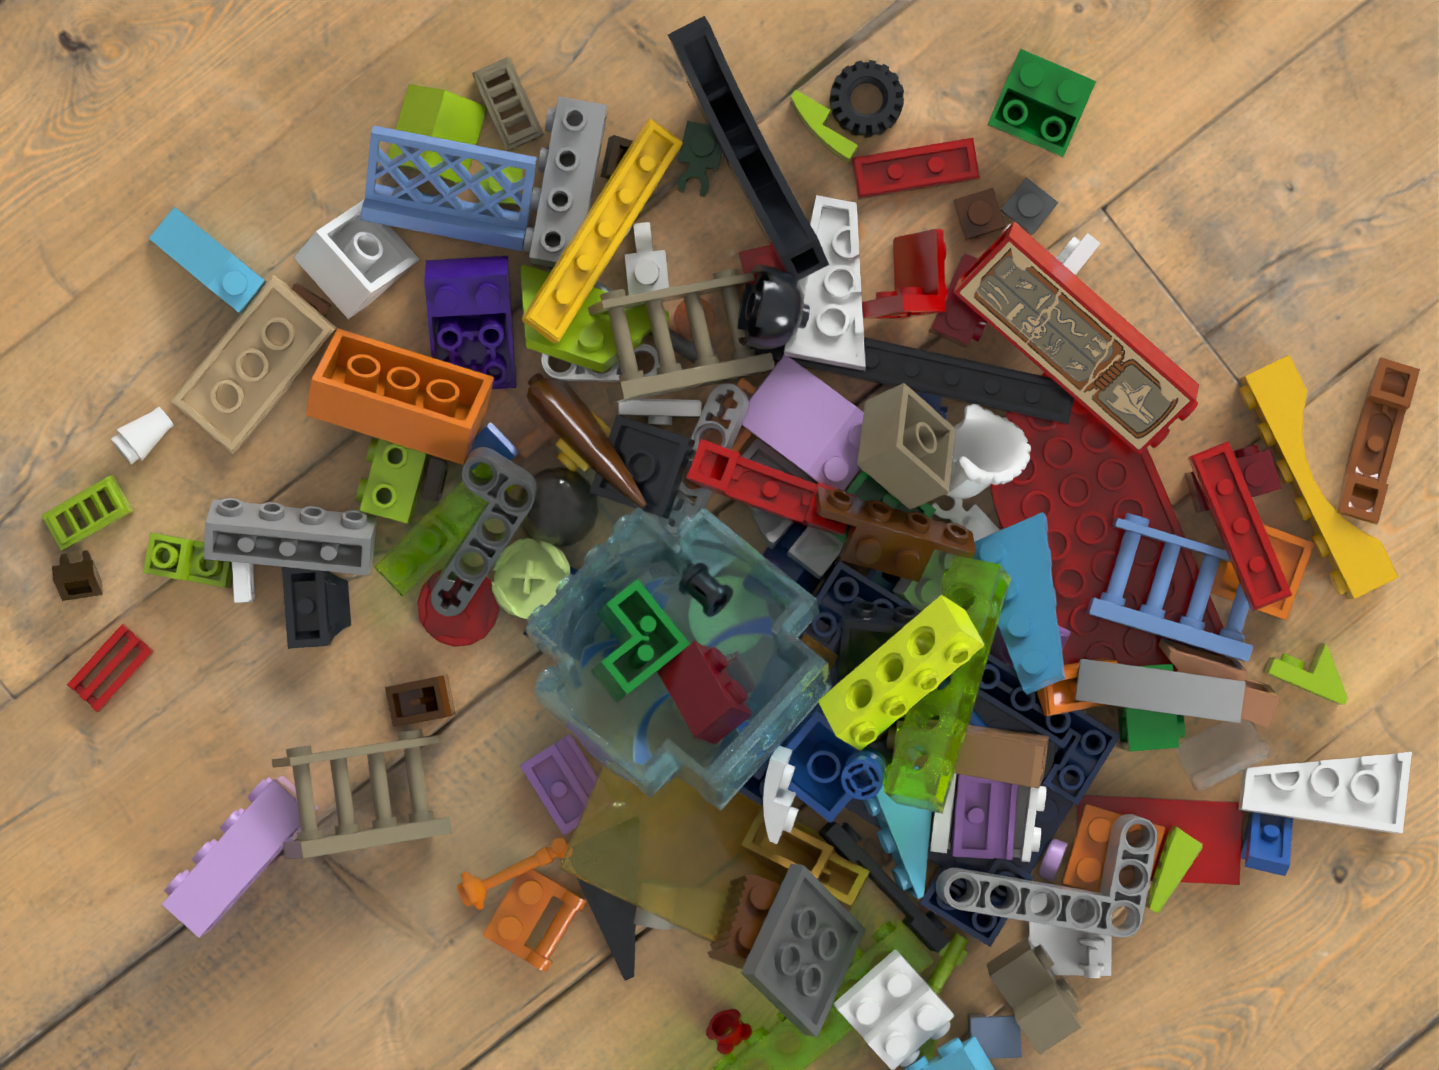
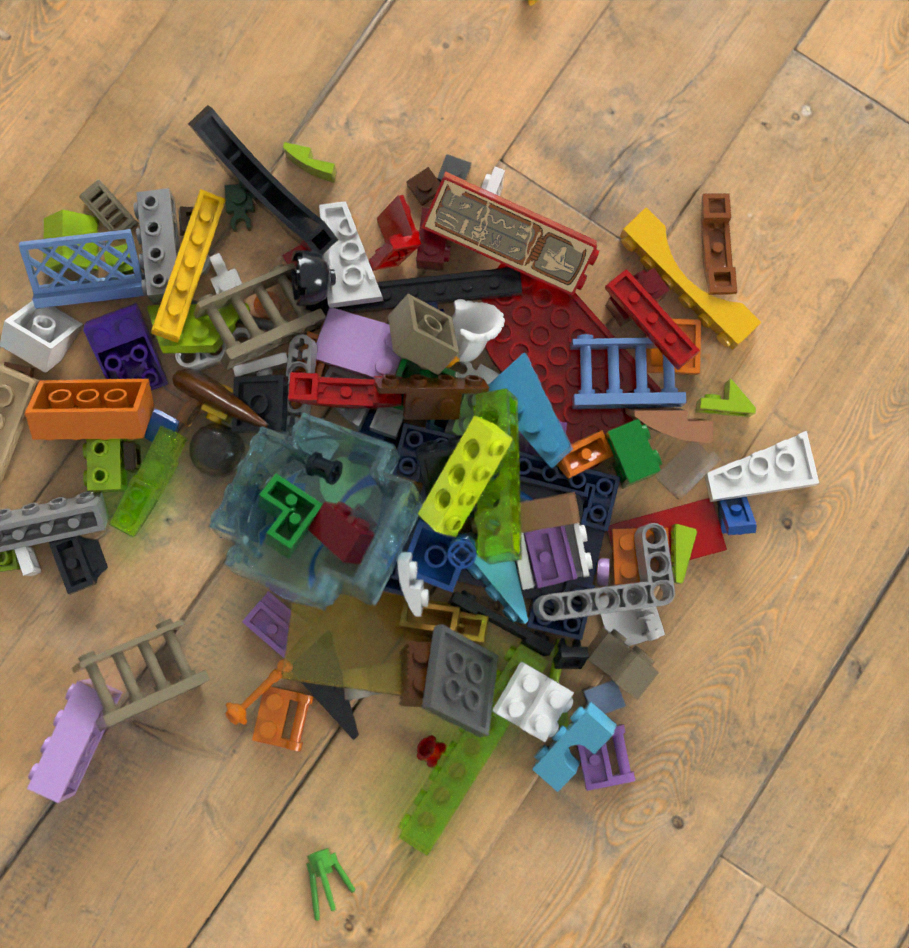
camera: 20 degrees left, 5 degrees down
(420, 700) = (166, 600): reddish brown slope -> none
(464, 628) = (172, 533): red tile -> none
(478, 538) = (166, 481): dark grey beam -> none
(528, 576) = (206, 496): yellowish green tile -> none
(872, 74) = (332, 121): black tyre -> none
(915, 168) = (376, 171): red tile -> none
(965, 964) = (570, 657): none -> black tile
(1041, 103) = (440, 102): green slope -> none
(1159, 690) = (636, 438): light grey slope -> none

